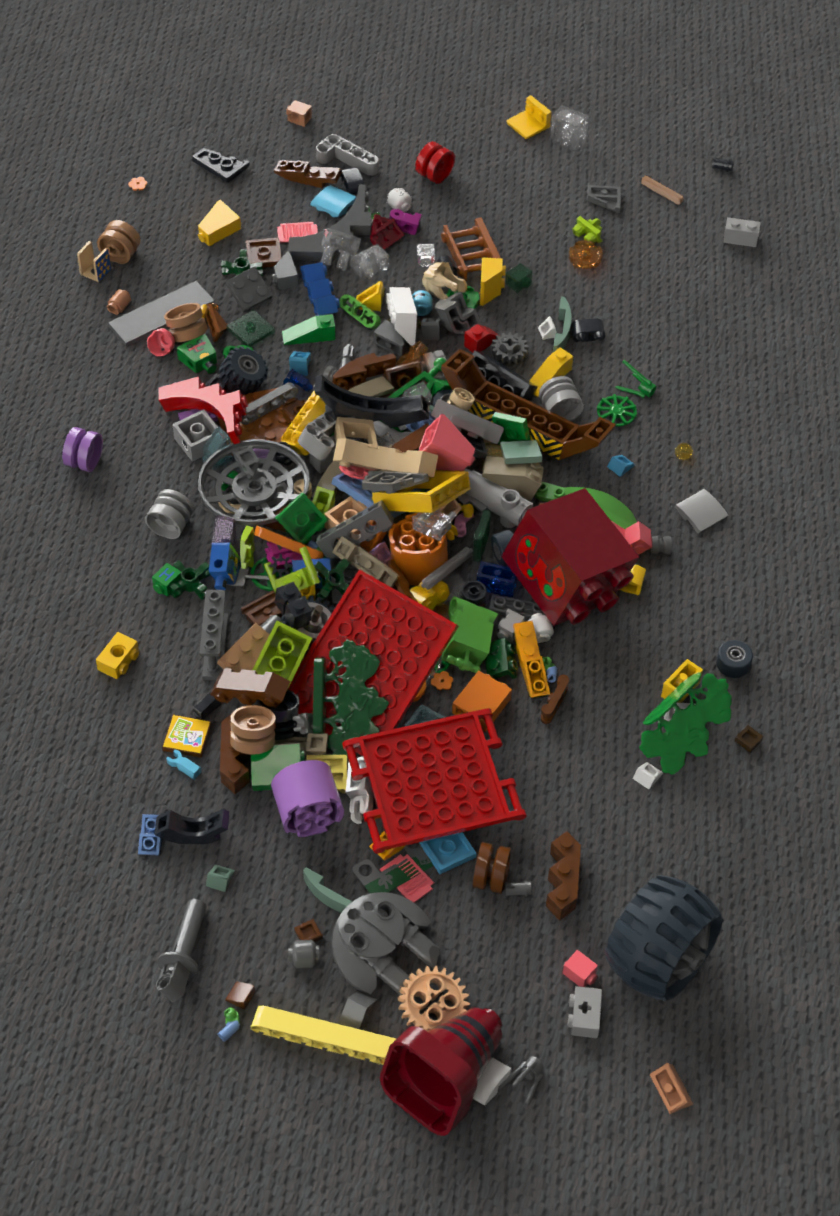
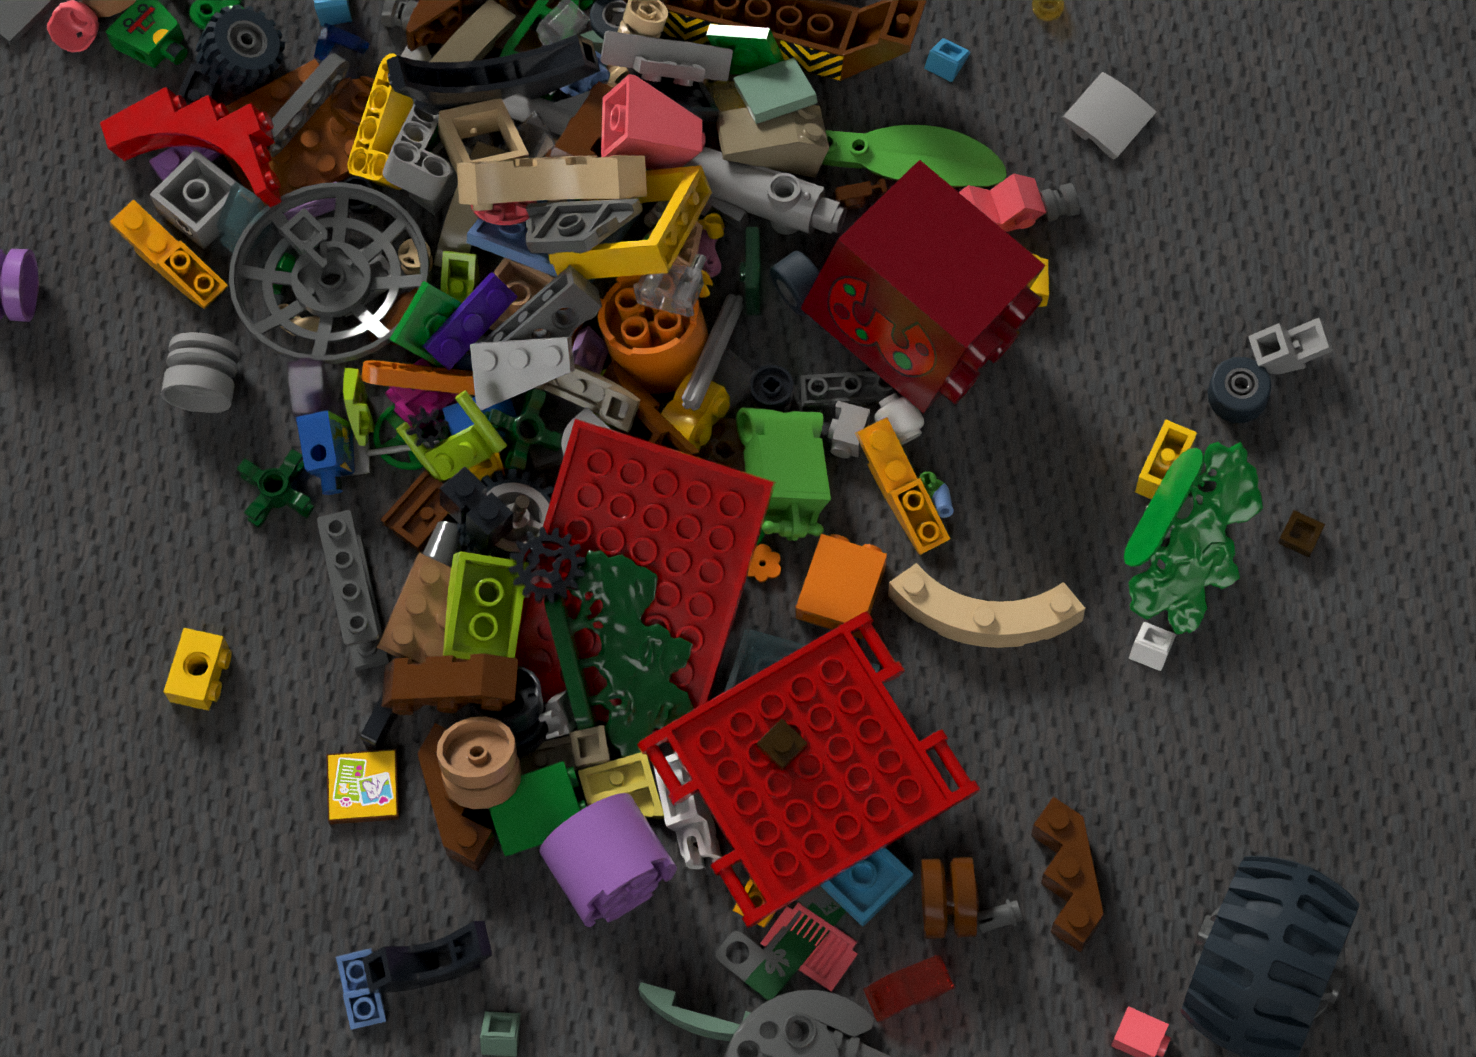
camera: 10 degrees left, 15 degrees up
(164, 578) = (232, 499): green brick -> none
(172, 458) = (167, 255): none -> light orange slope
(184, 765) = (377, 843): medium azure bar -> none
(320, 520) = (470, 321): none -> dark purple plate
(324, 631) = (560, 557): none -> black gear
(338, 544) = (517, 366): none -> light grey wing
(421, 761) = (781, 744): none -> dark brown plate
(458, 909) = (908, 987): none -> clear red slope
(497, 579) = (800, 347): clear blue brick -> none
(501, 659) = (852, 498): dark green bracket -> none
(554, 700) = (962, 548): reddish brown plate -> none
(556, 737) = (984, 621): none -> tan brick
(766, 645) = (1289, 350): none -> light grey brick

